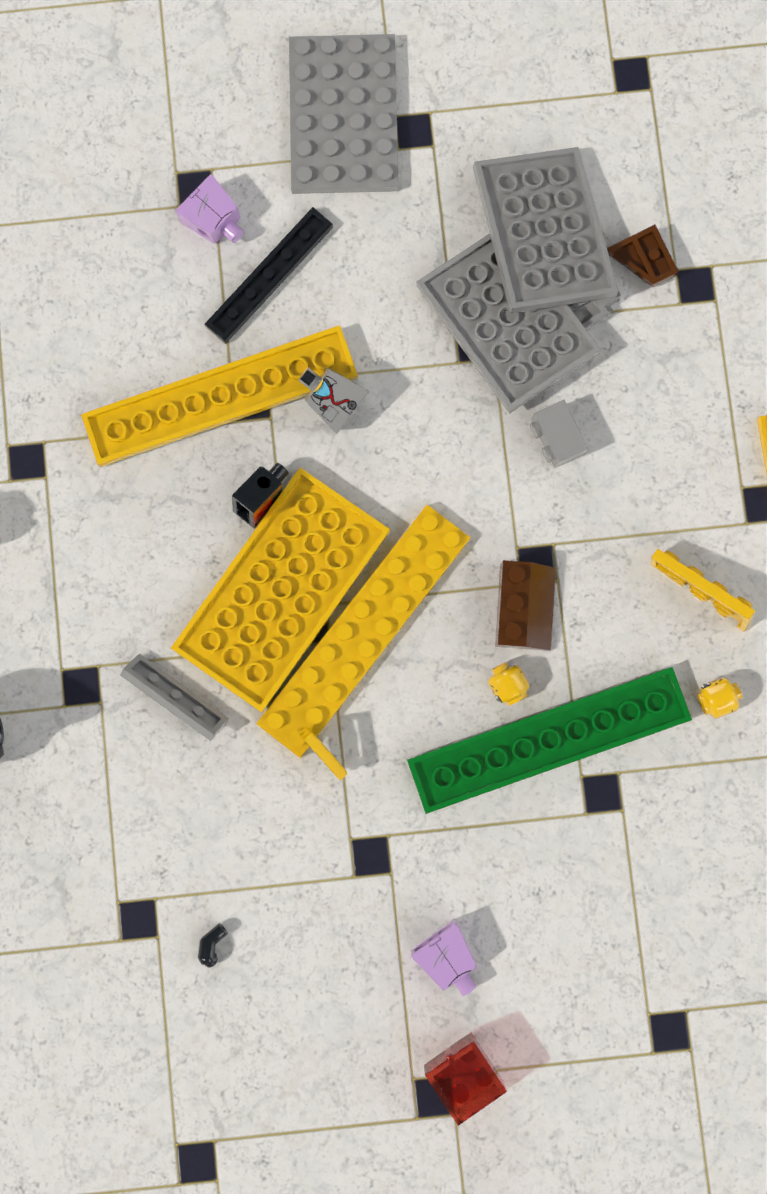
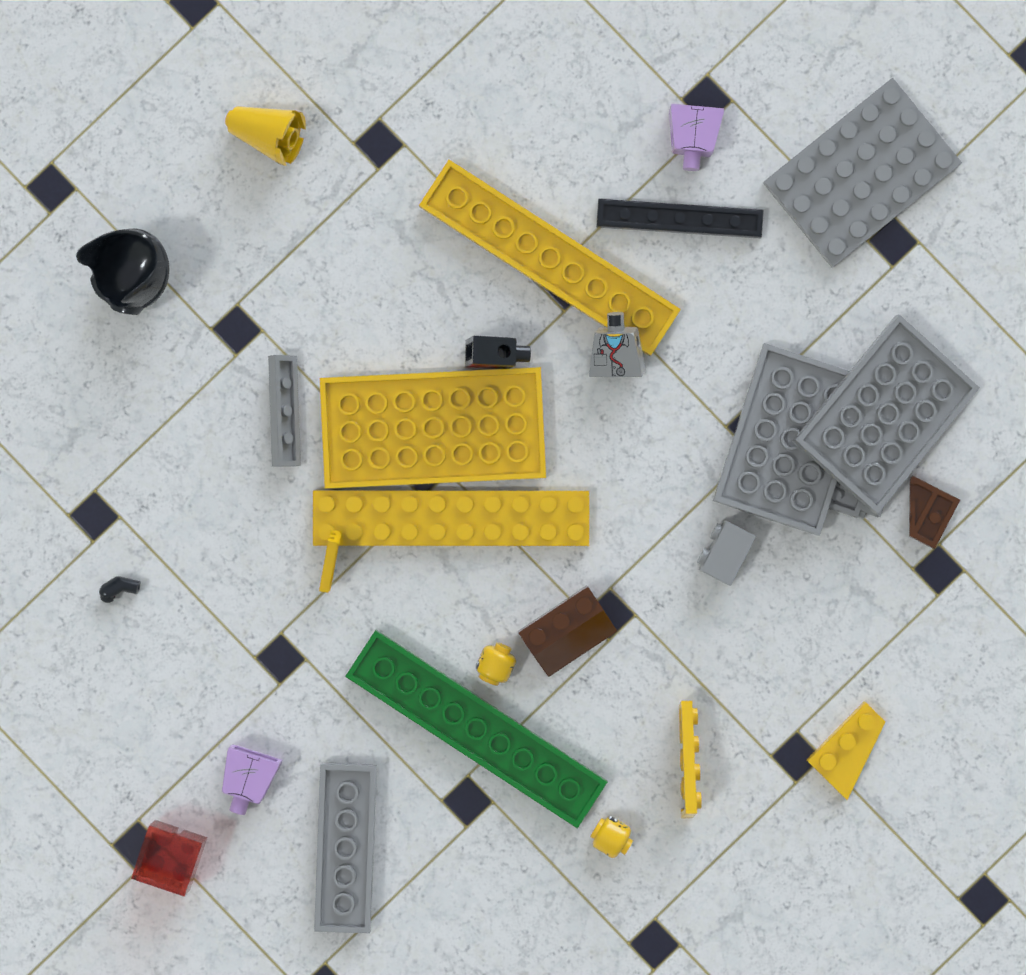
camera: 45 degrees right, 5 degrees up
(566, 923) = (345, 848): none -> light grey plate

